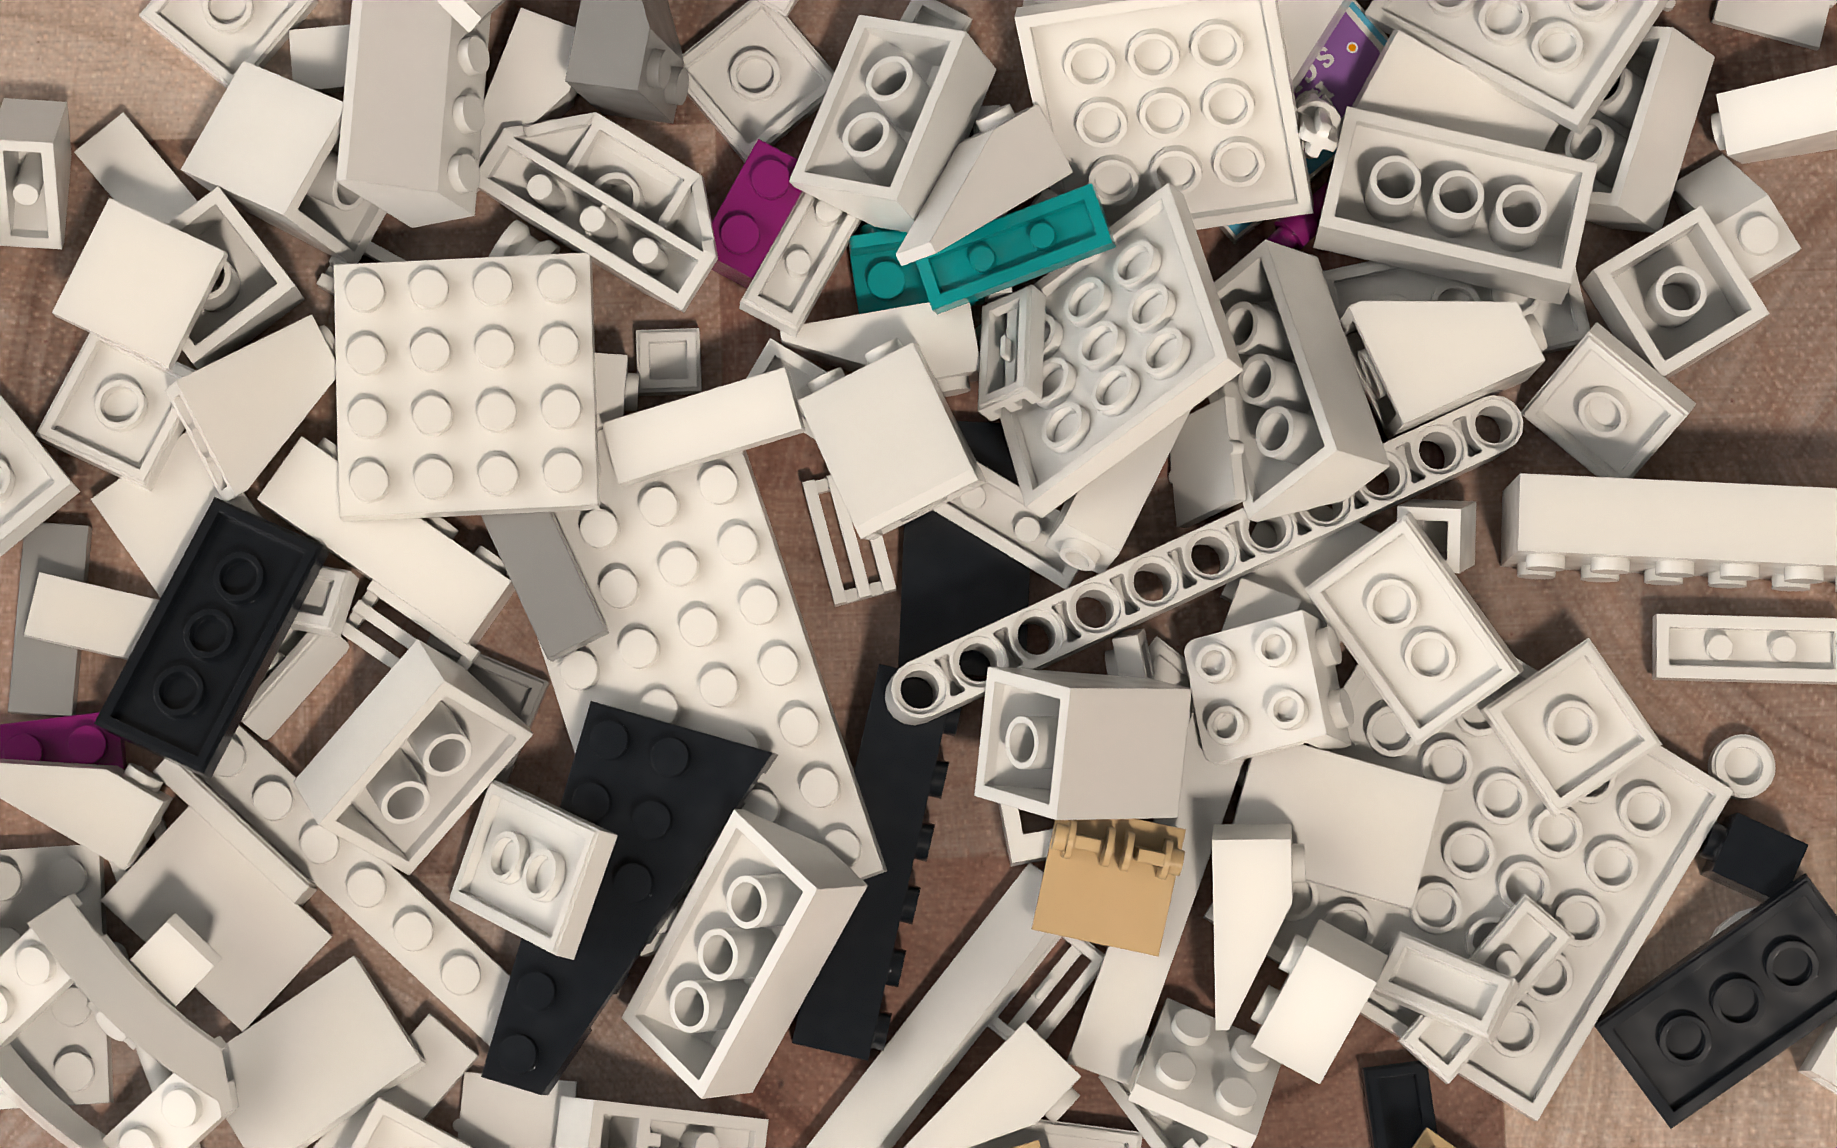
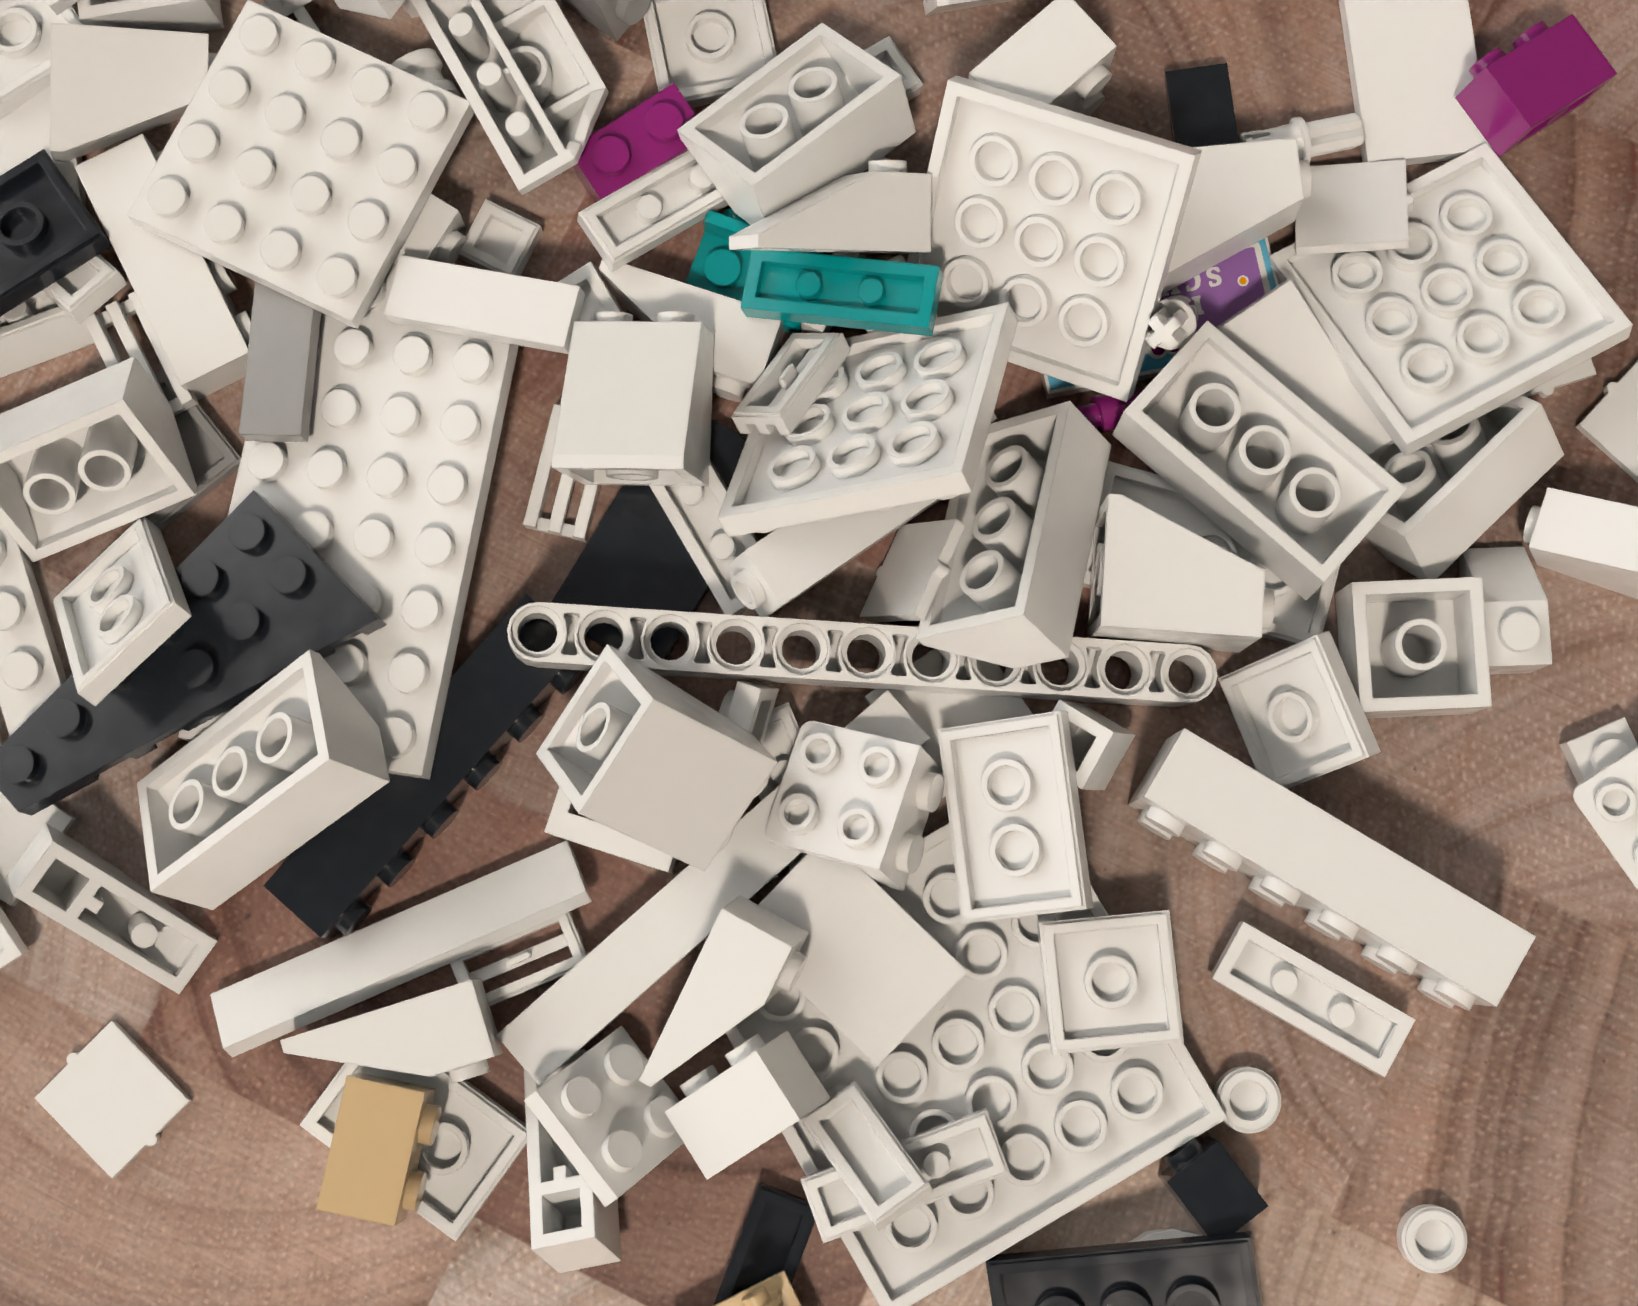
camera: 35 degrees right, 0 degrees up
(1110, 882) = (617, 898): tan hinge -> none

